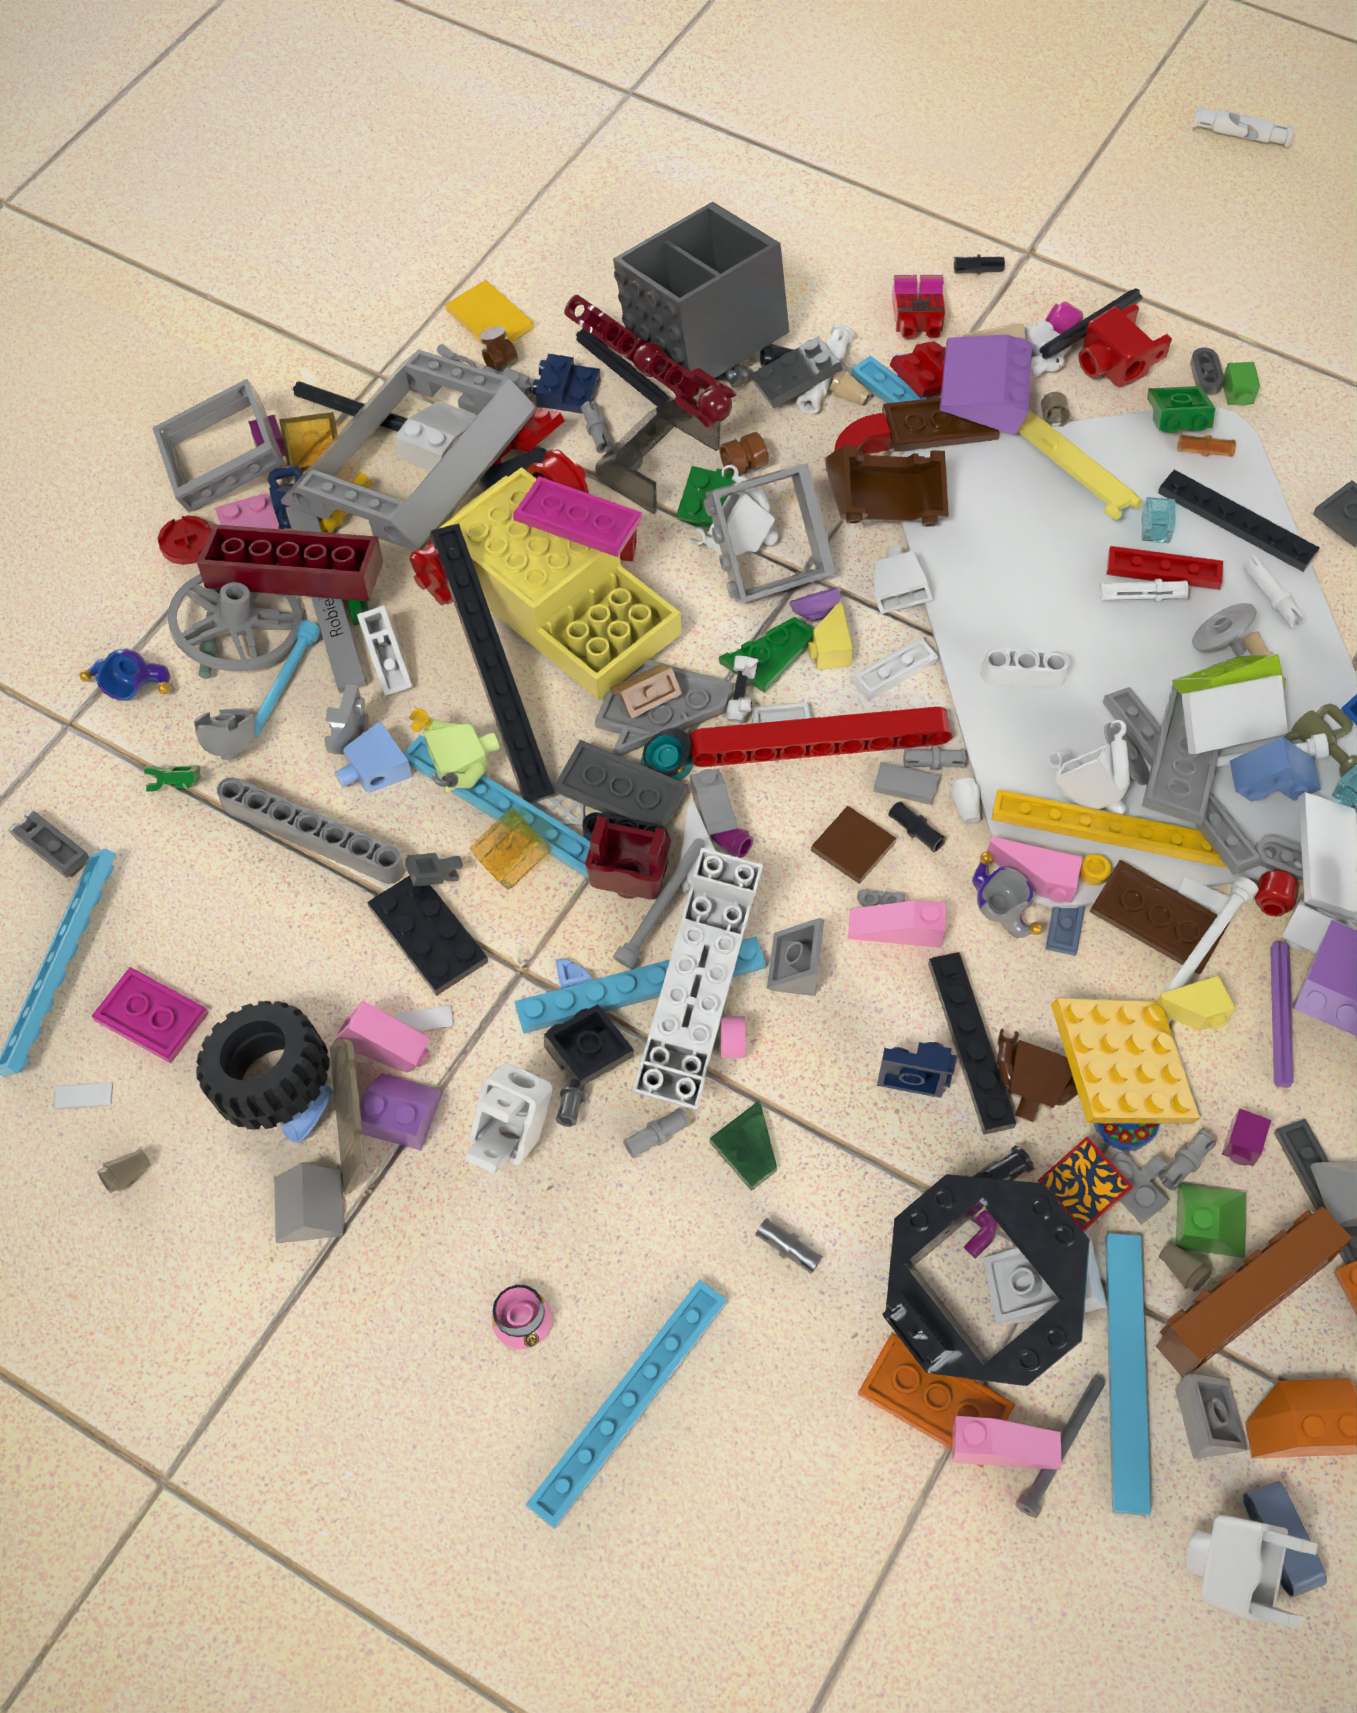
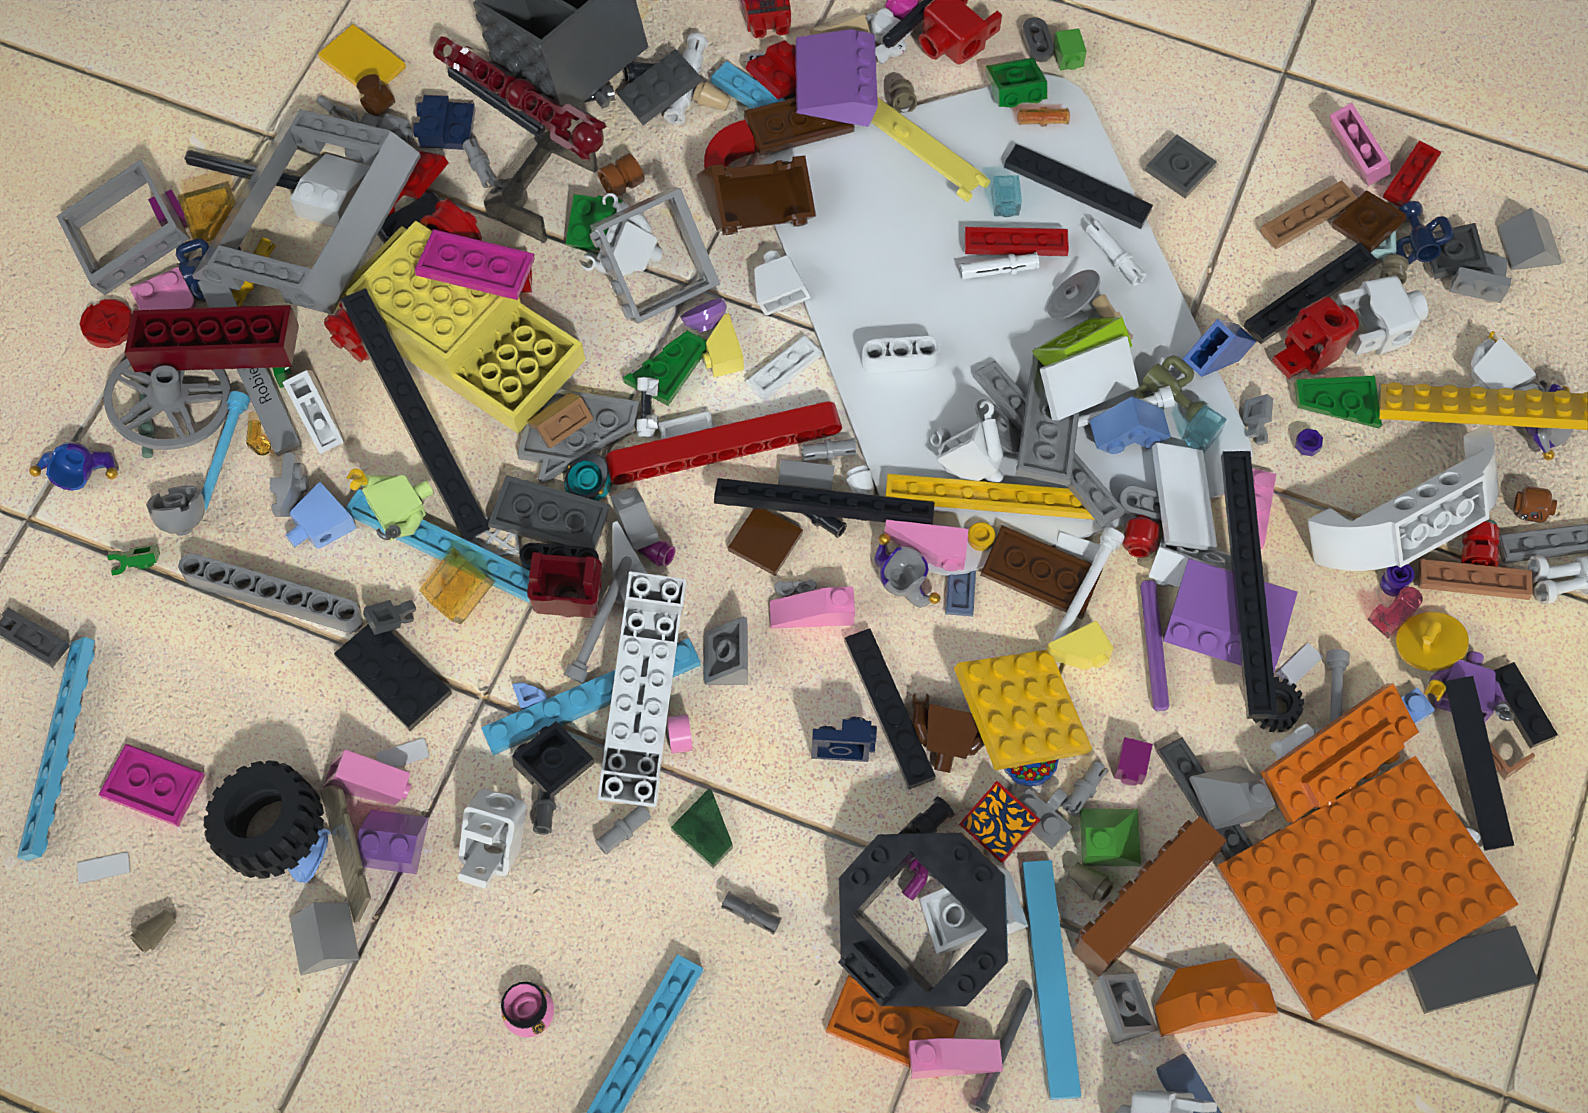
camera: 10 degrees left, 5 degrees up
(319, 674) = (254, 439): none -> clear yellow arm
(921, 809) = (822, 502): none -> black plate

